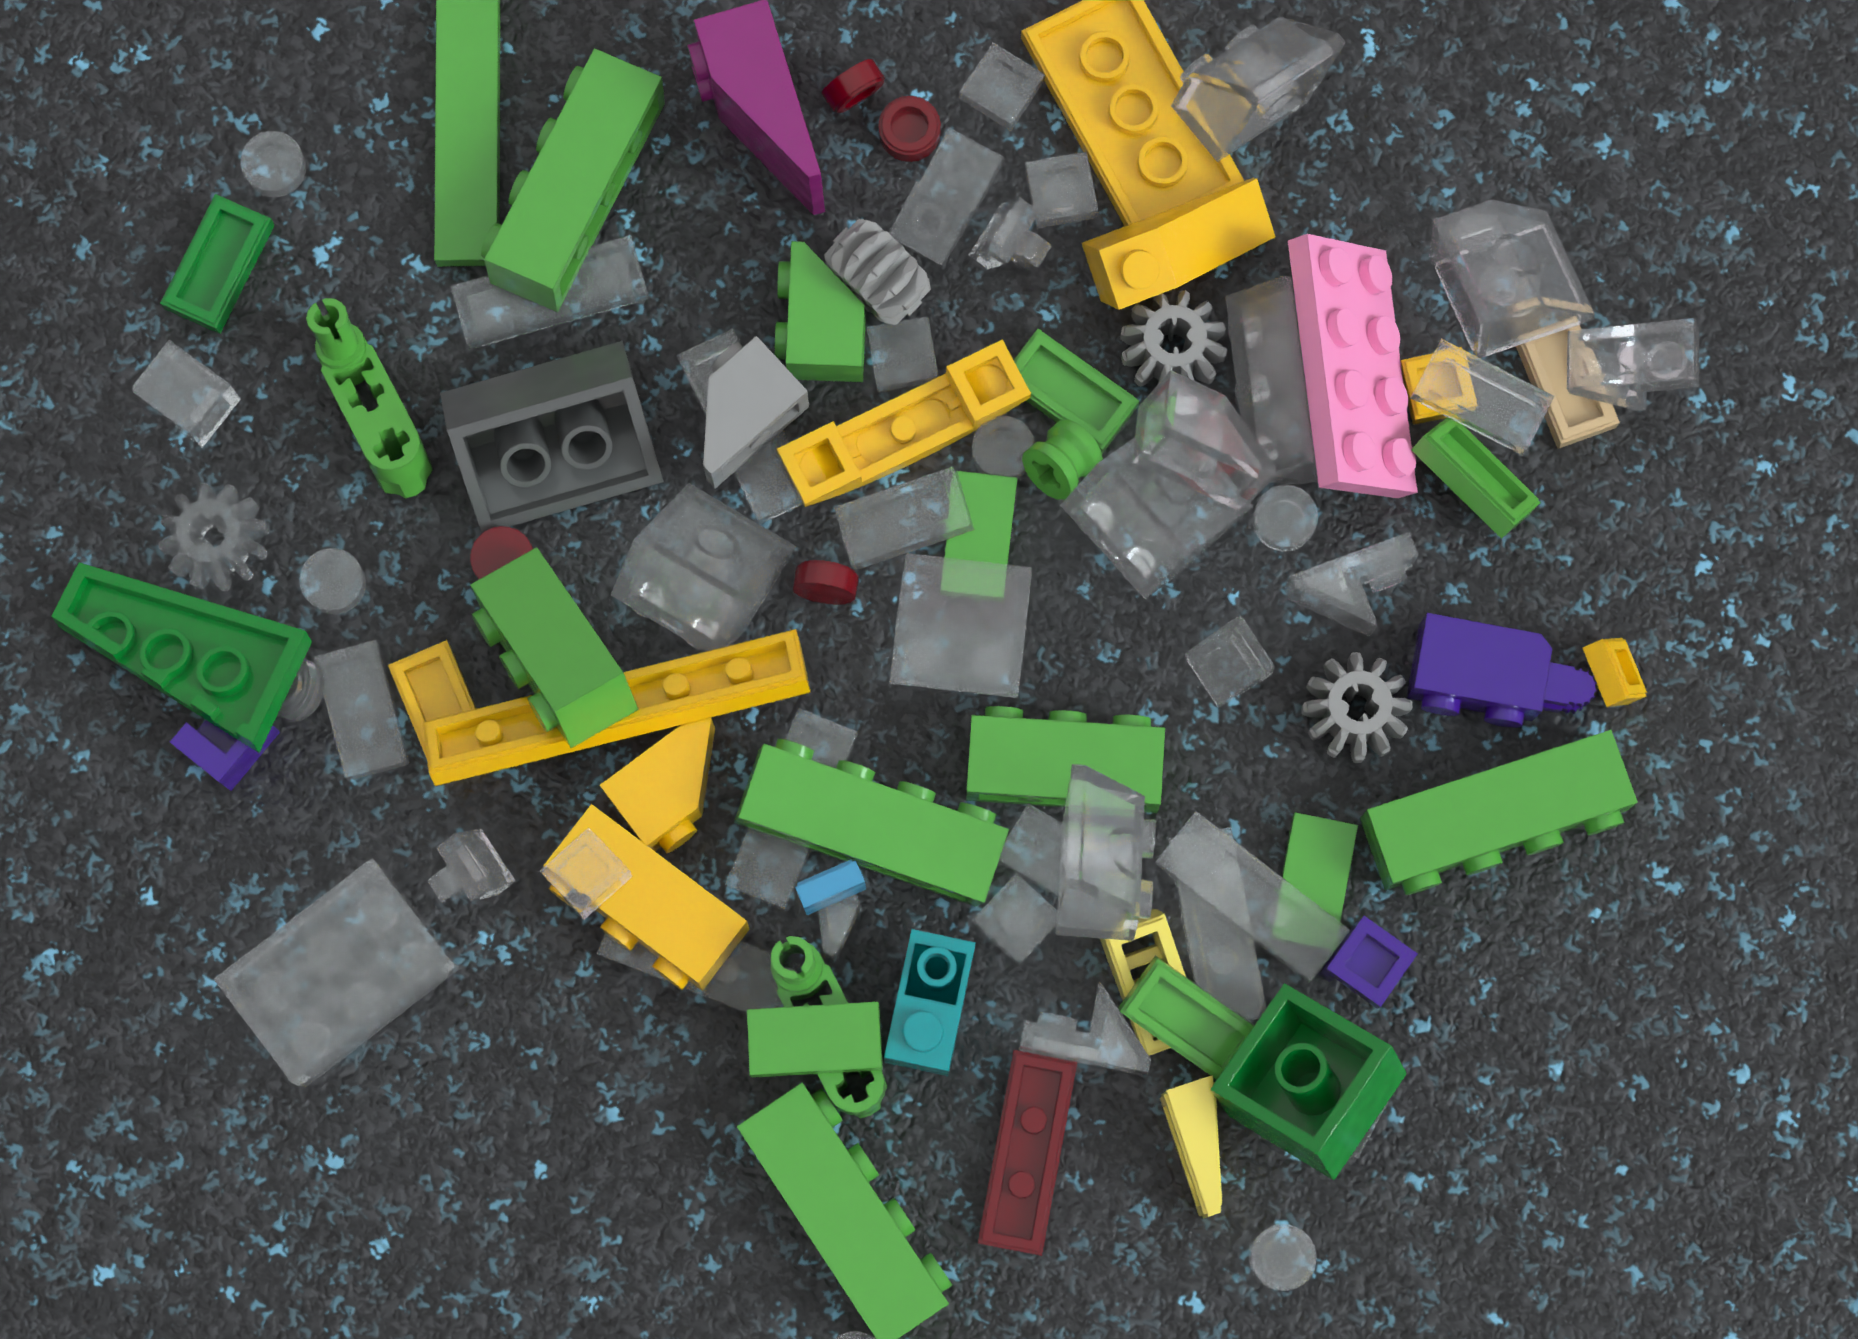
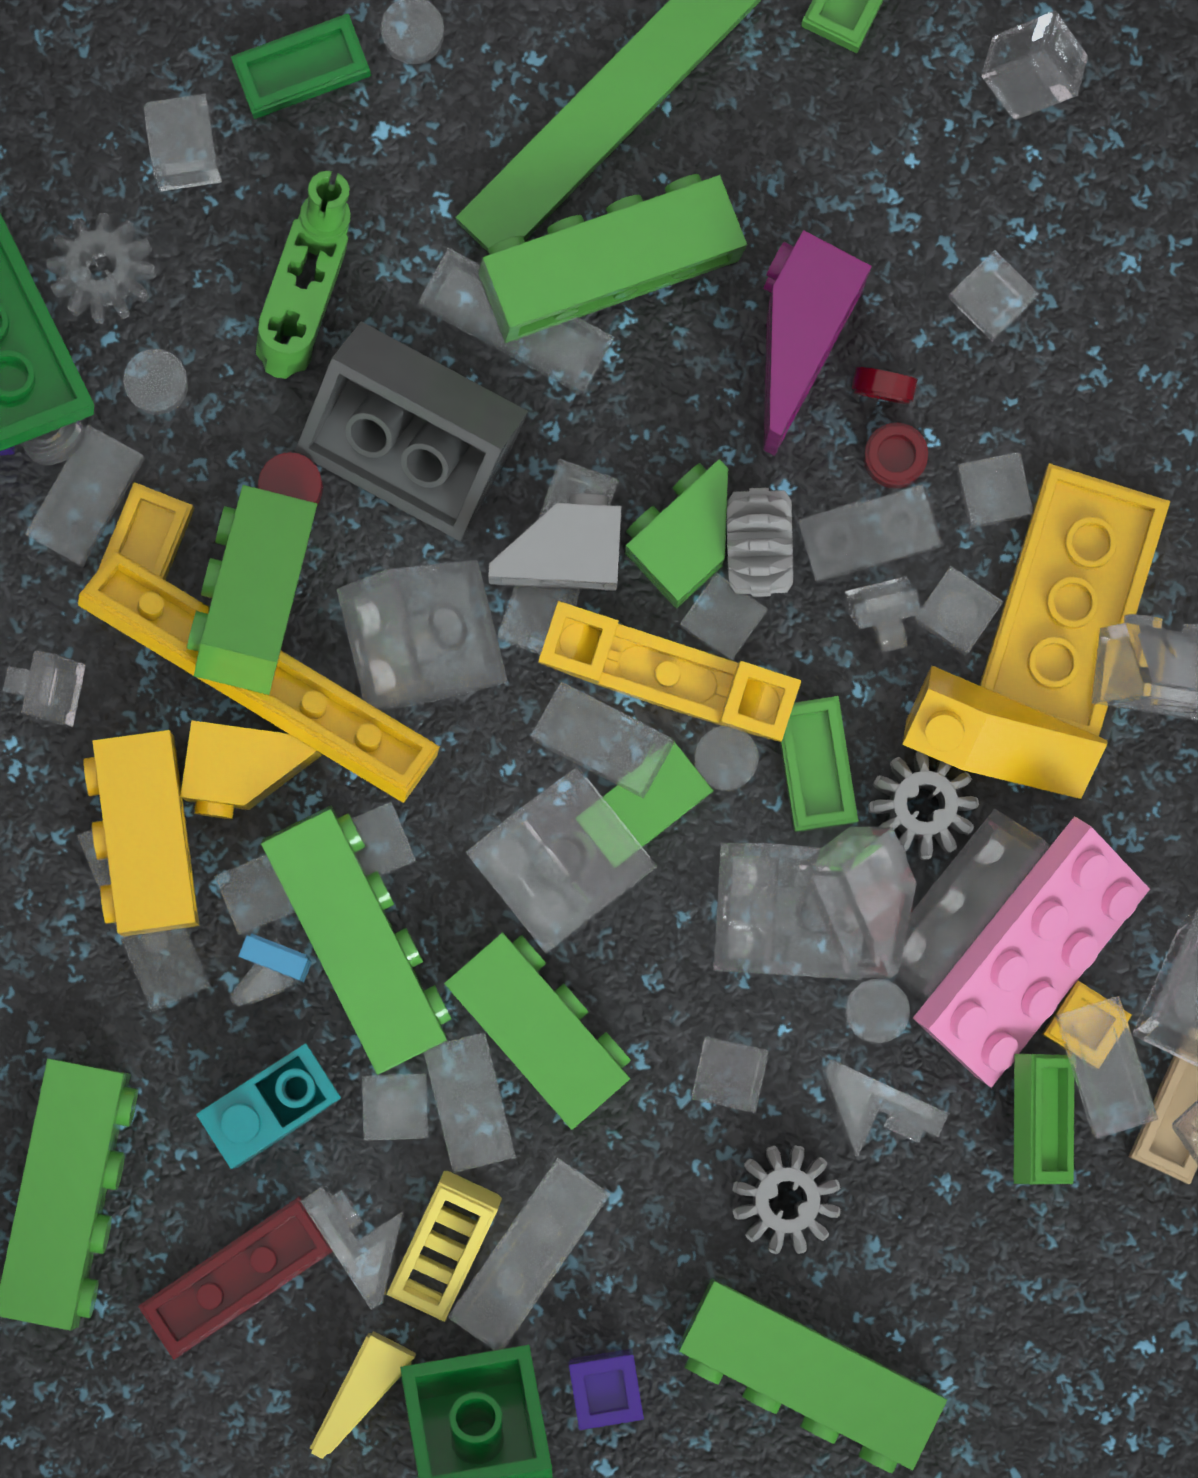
camera: 40 degrees right, 5 degrees up
(586, 873) = (114, 777): clear slope -> none
(805, 984) = (182, 1083): bright green beam -> none
(814, 1039) = (160, 1053): bright green tile -> none
(825, 582) = (500, 730): dark red tile -> none
(1061, 459) = (757, 810): bright green wheel -> none
(1102, 858) = (488, 1129): clear slope -> none
(1185, 1017) = (439, 1297): bright green tile -> none
(1252, 897) = (573, 1259): clear tile -> none
(1320, 860) = (630, 1291): bright green tile -> none
(1492, 673) = (910, 1271): dark purple hinge -> none
(1615, 671) = (997, 1360): yellow tile -> none

